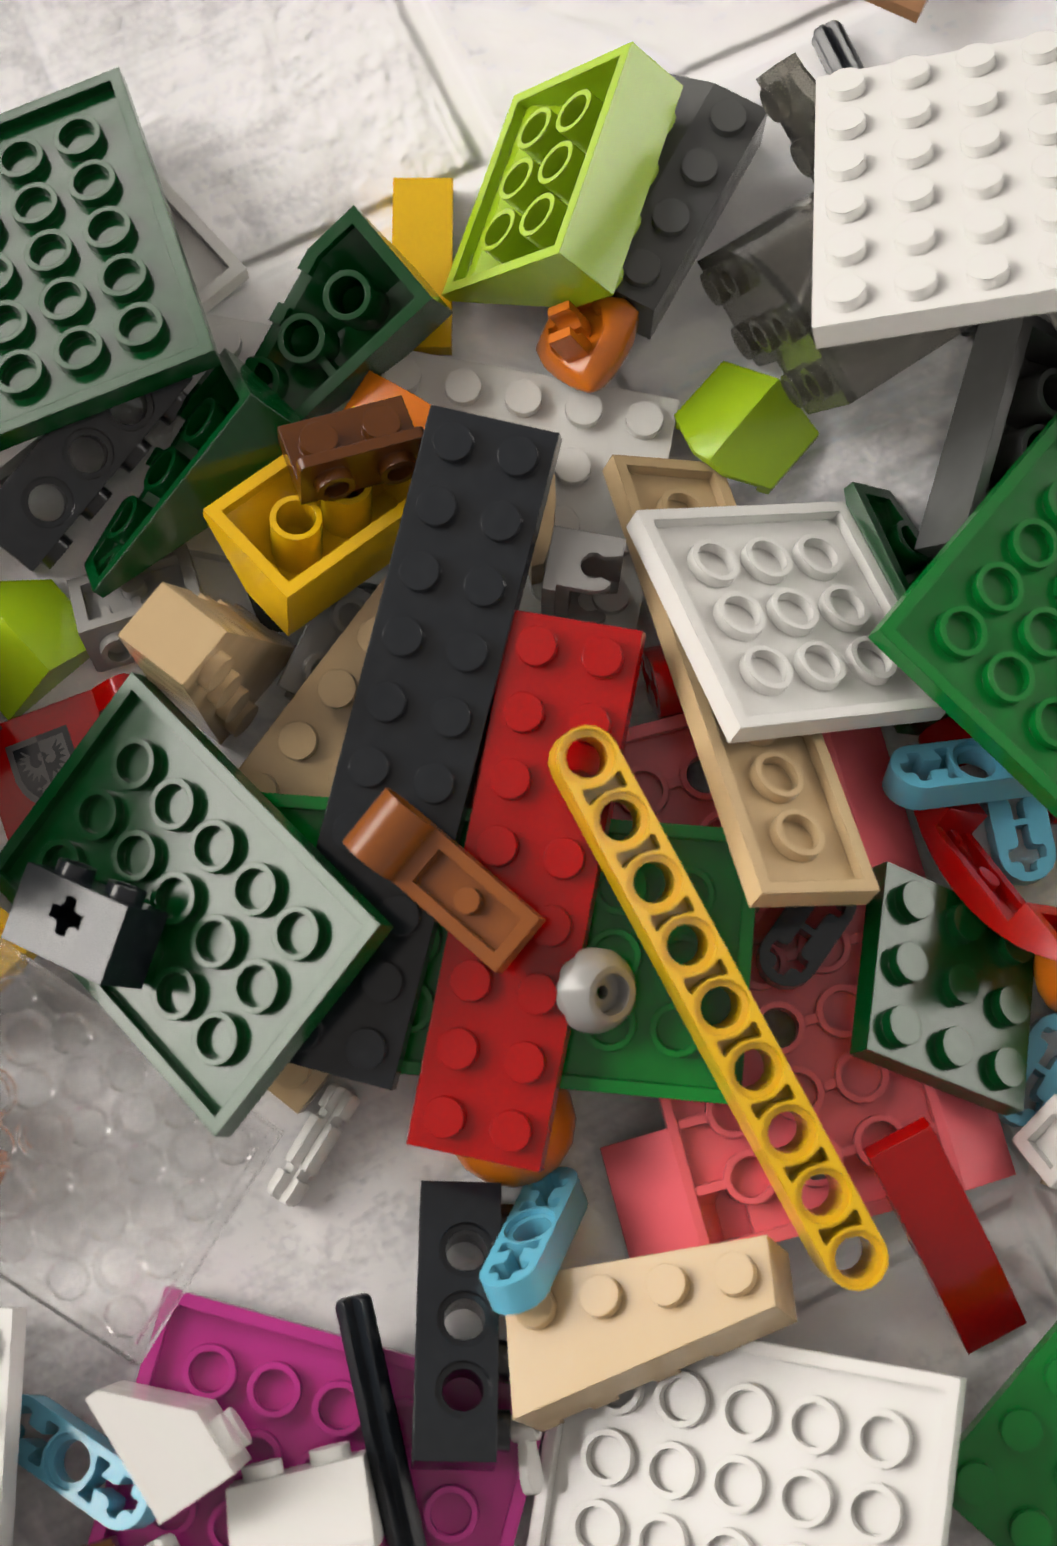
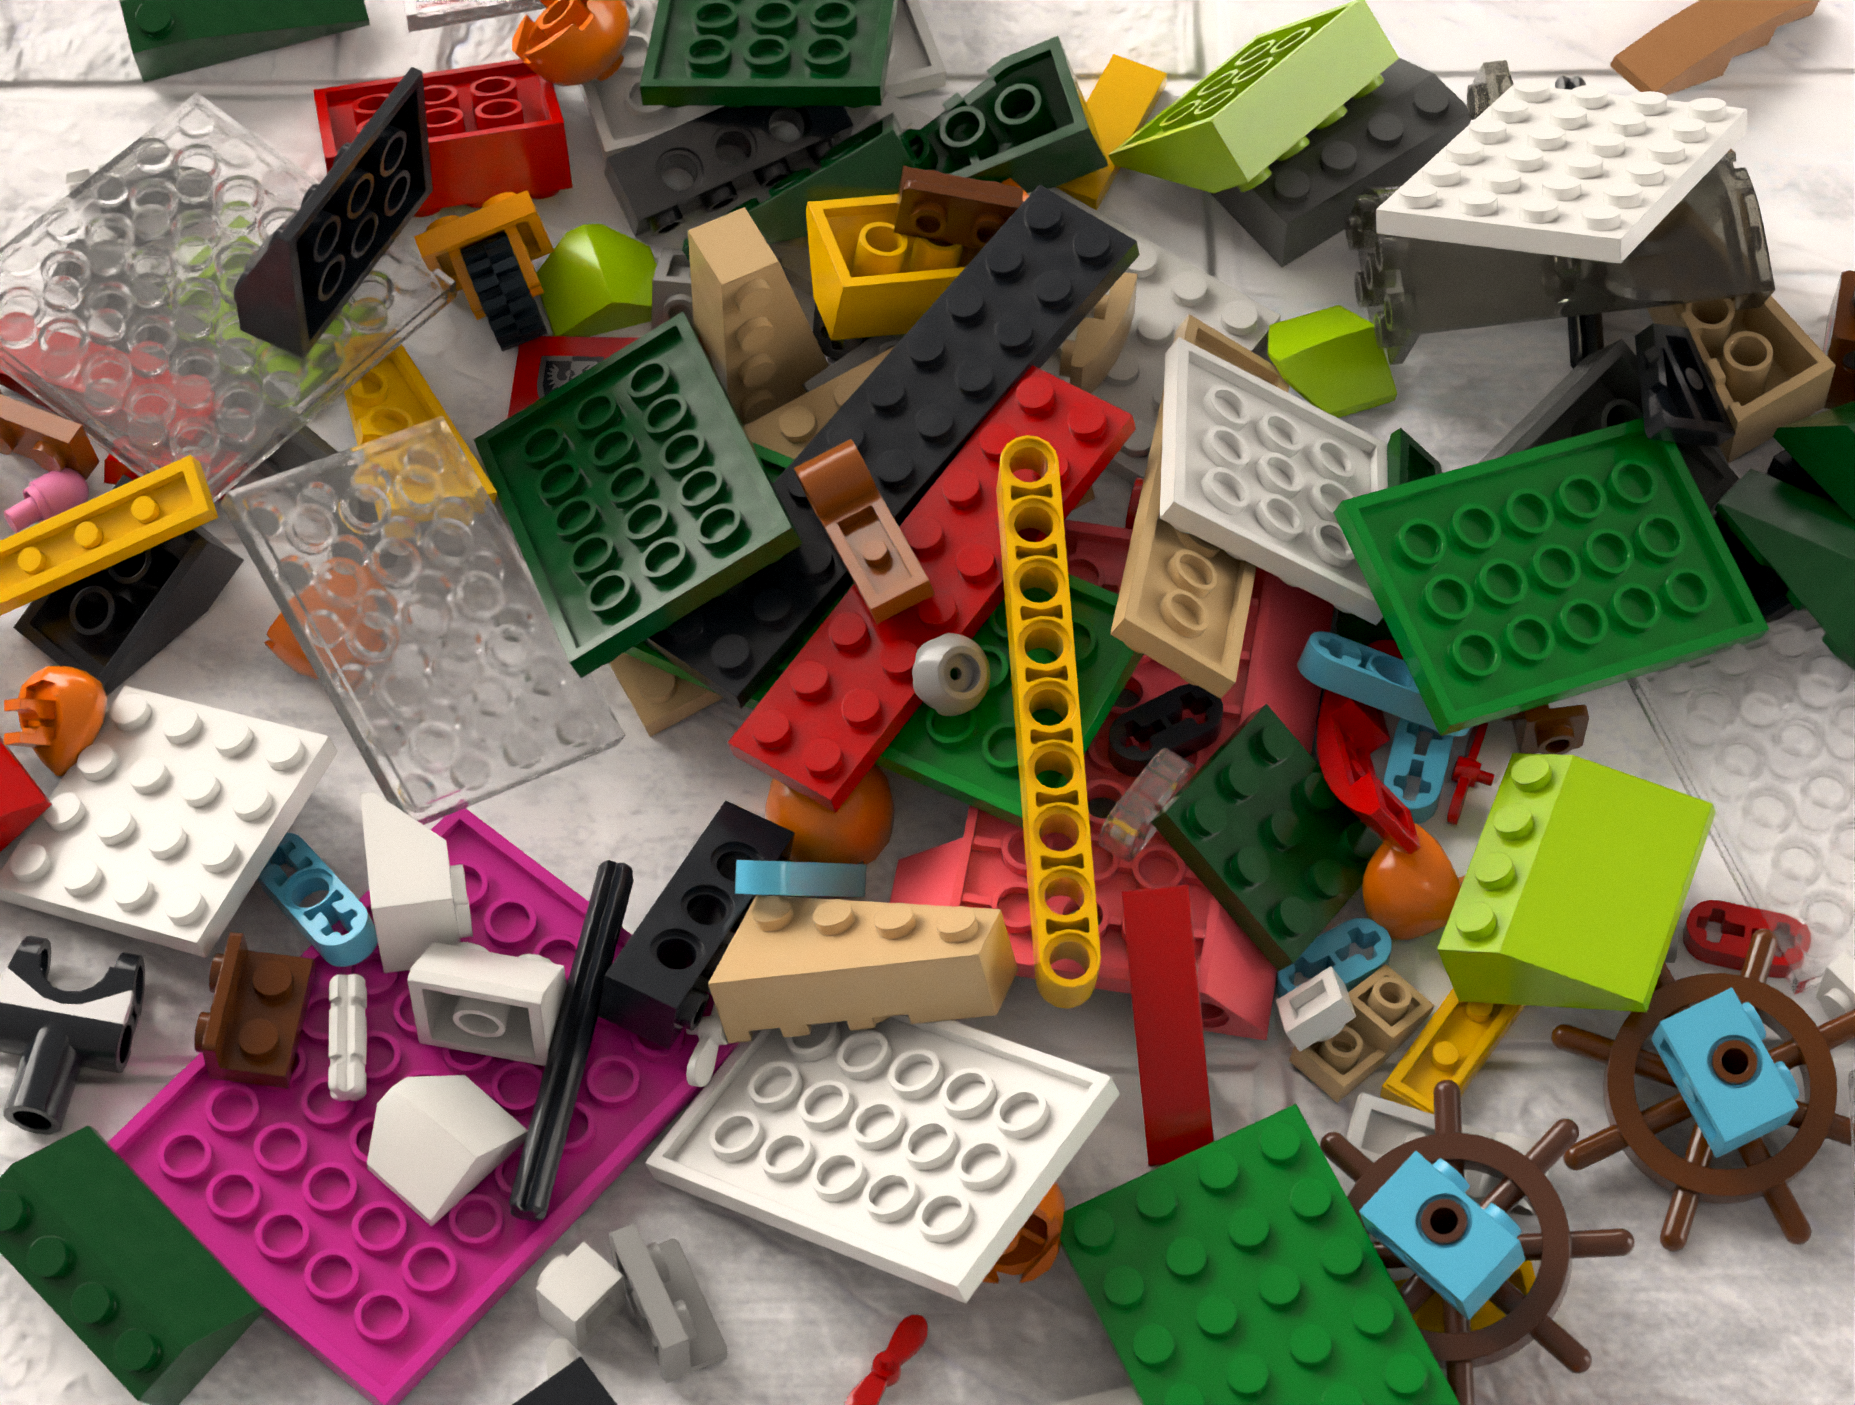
camera: 25 degrees right, 20 degrees down
(84, 924) = (545, 474): brick -> none
(313, 1145) = (645, 758): white axle -> none
(578, 565) = (1116, 372): light grey hinge -> none
(588, 342) = (1217, 233): orange piece -> none
(831, 1027) = (1128, 823): none -> clear beam

